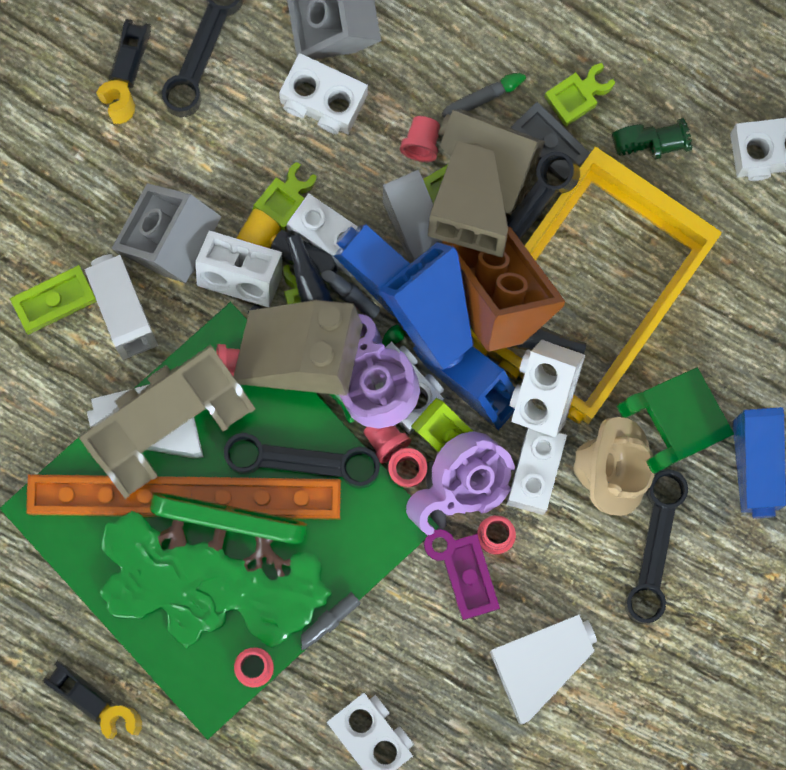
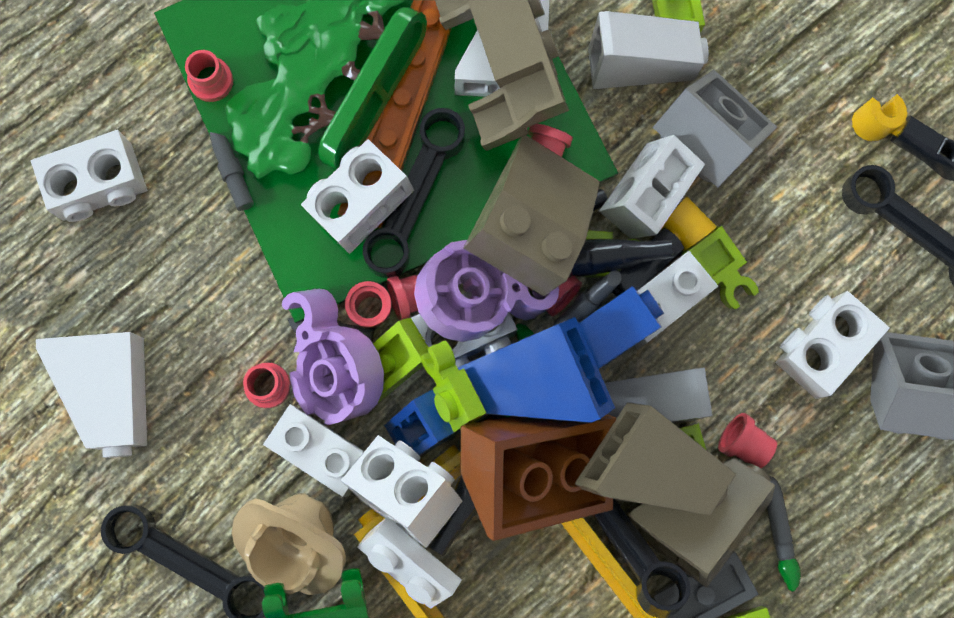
camera: 105 degrees right, 0 degrees up
(329, 490) = (366, 204): none -> white brick
(461, 368) = (454, 392): none -> lime plate
(466, 573) = (231, 336): magenta hinge -> none
(600, 367) = (409, 563): none -> white plate

